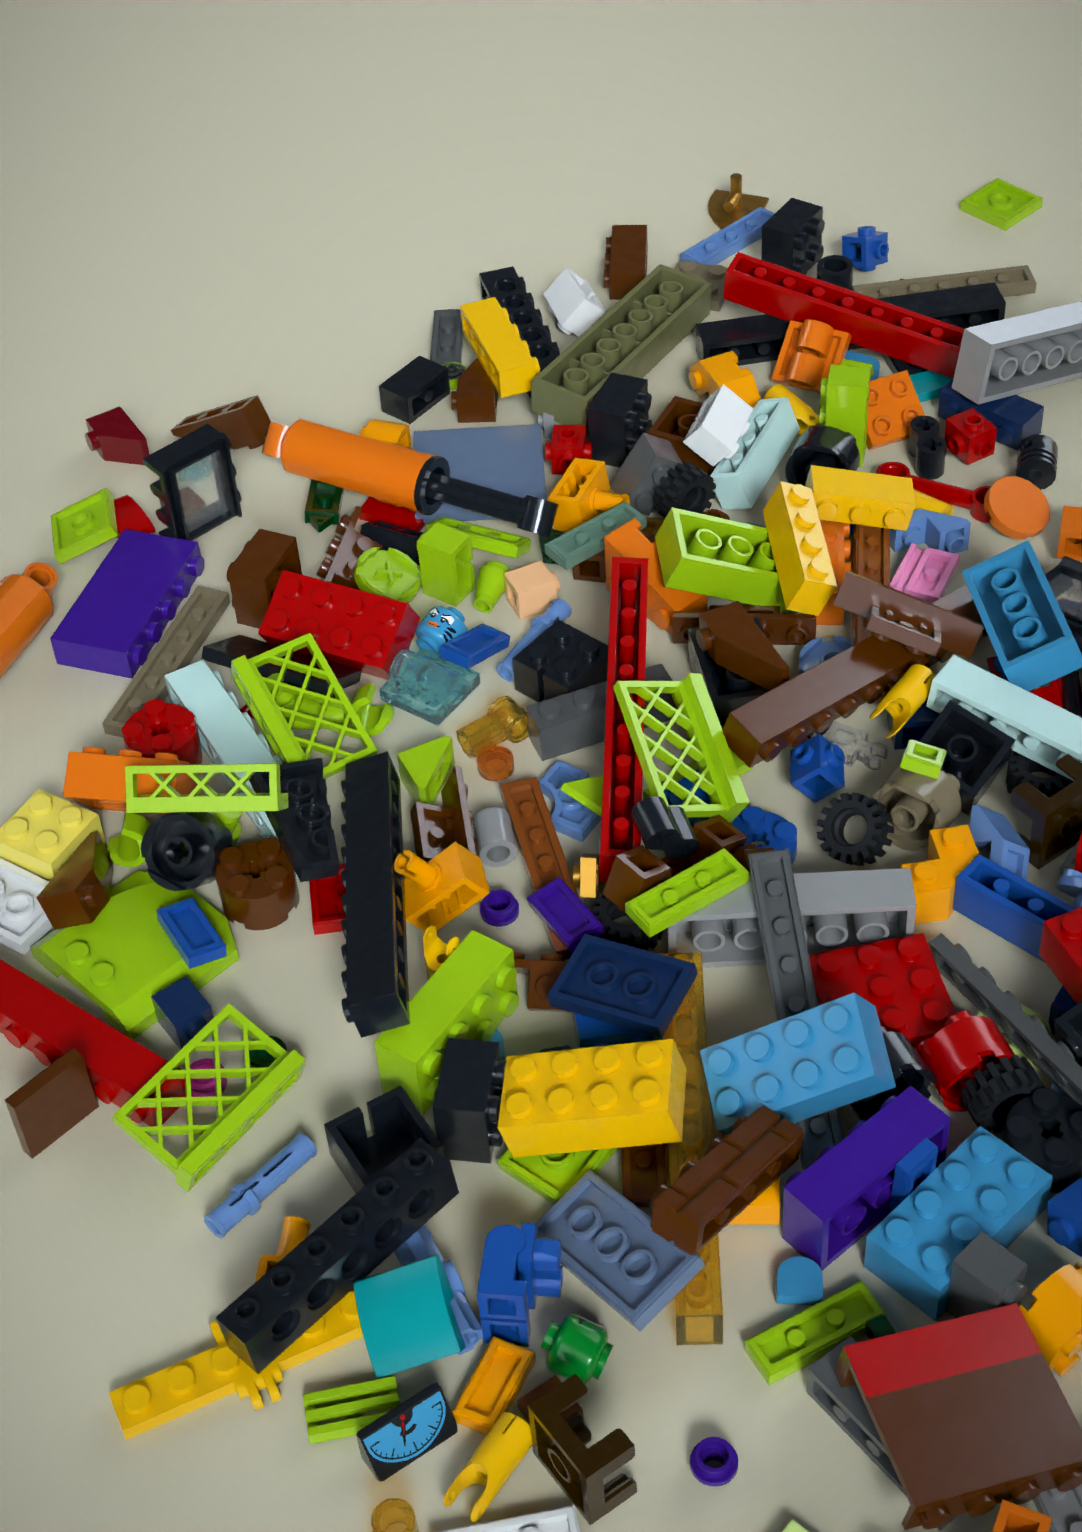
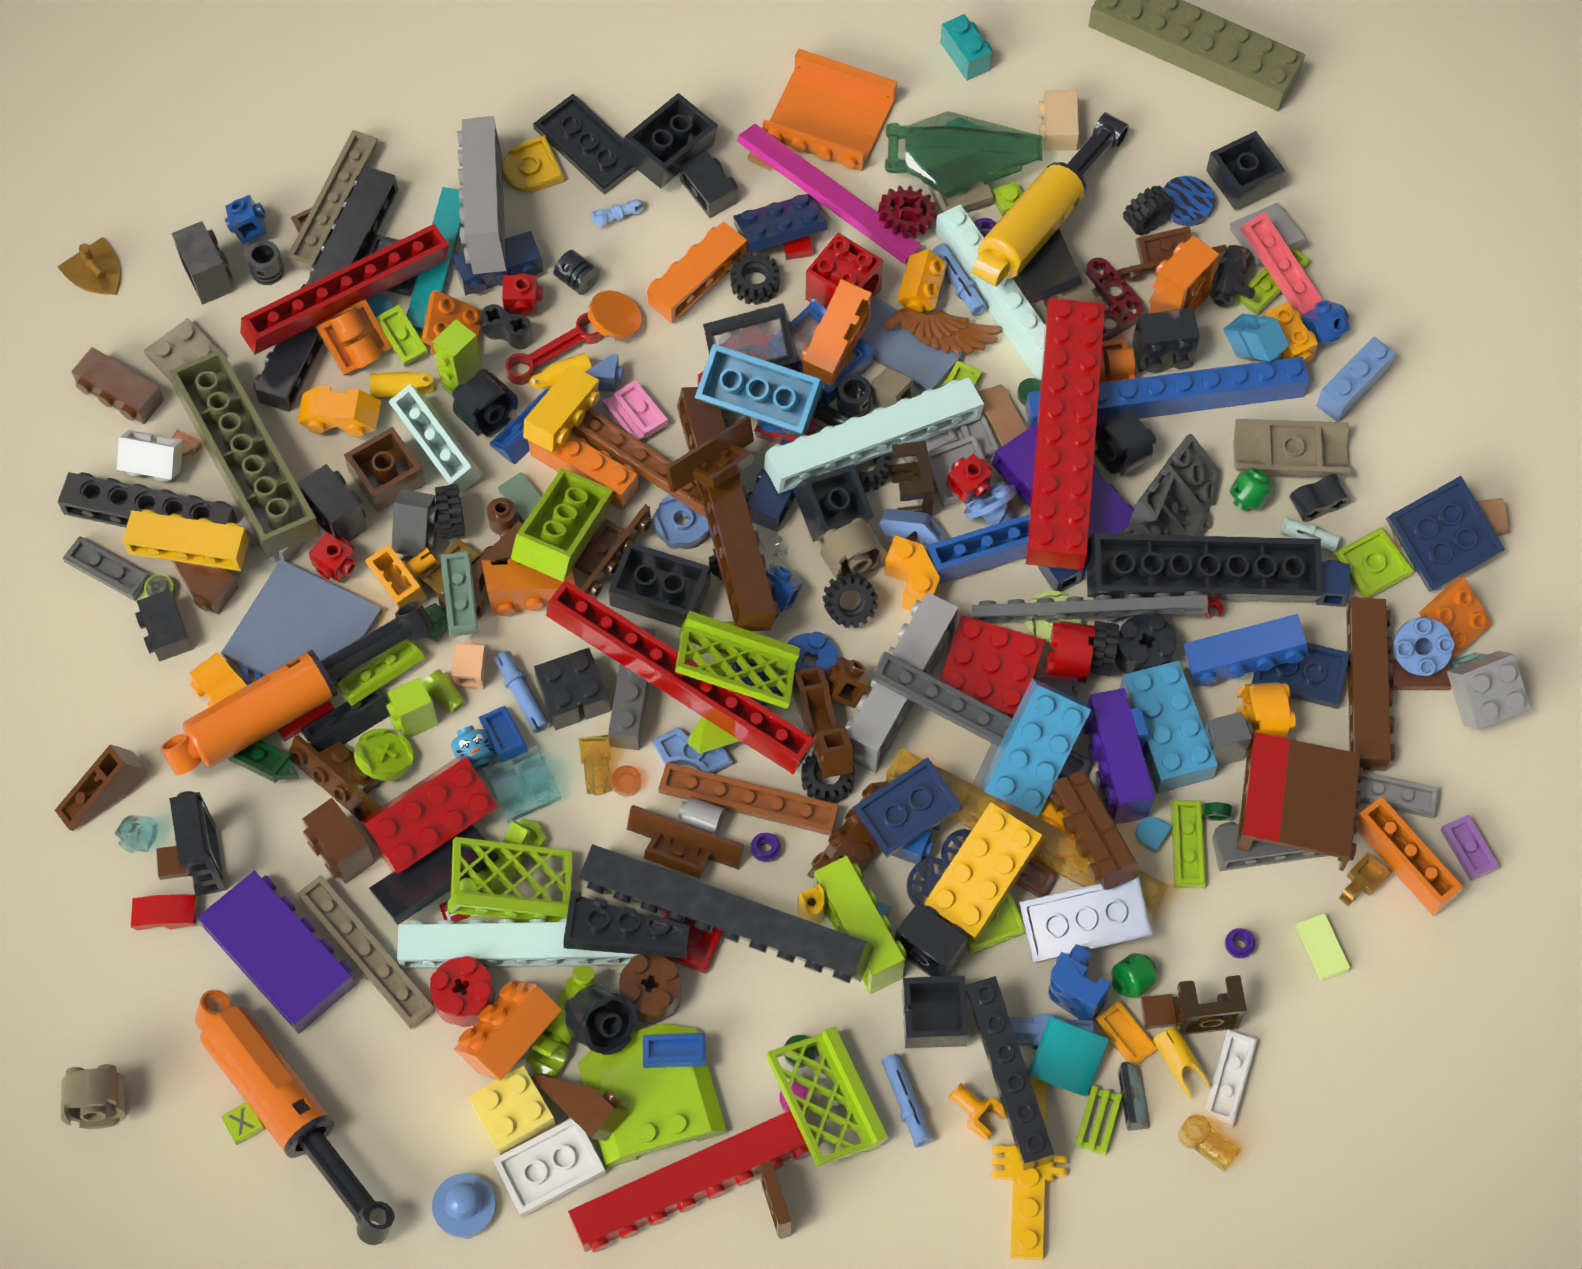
camera: 65 degrees left, 20 degrees up
(83, 525) = (153, 947): lime tile -> none
(116, 437) = (53, 874): dark red slope -> none
(182, 1011) = (738, 1086): dark blue brick -> none
(208, 802) = (586, 980): lime fence -> none
(426, 768) = (612, 831): lime slope -> none
(441, 887) = (741, 867): light orange brick -> none
(564, 913) = (810, 809): dark purple tile -> none
(587, 875) = (783, 776): plate -> none
(664, 828) = (805, 711): black axle -> none
(686, 892) = (869, 728): lime tile -> none
(719, 426) = (413, 437): white piece -> none
(729, 239) = (139, 296): medium blue tile -> none
(741, 646) = (659, 569): reddish brown slope -> none
(799, 549) = (592, 477): yellow brick -> none
(906, 697) = (769, 503): yellow piece -> none
(923, 759) = (839, 527): lime tile -> none
(1001, 204) = (249, 91): lime tile -> none

